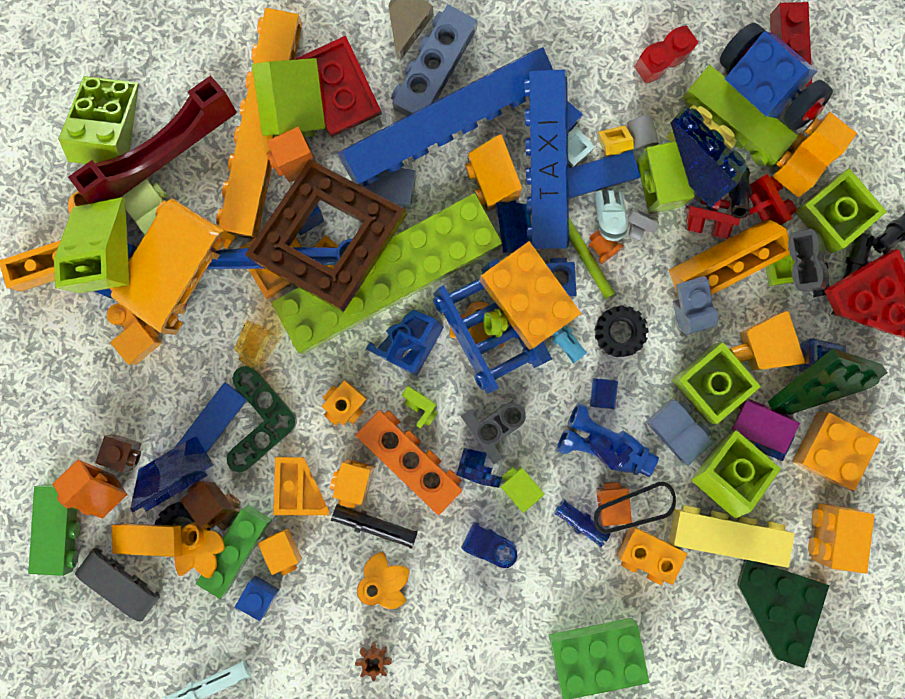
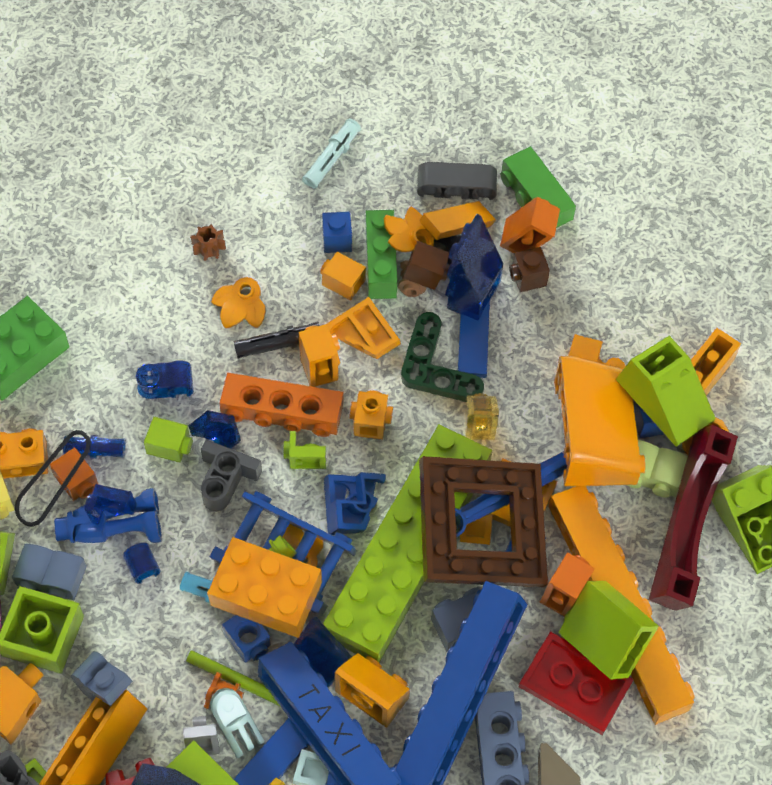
camera: 145 degrees right, 25 degrees down
(638, 331) = (152, 610): black tyre -> none

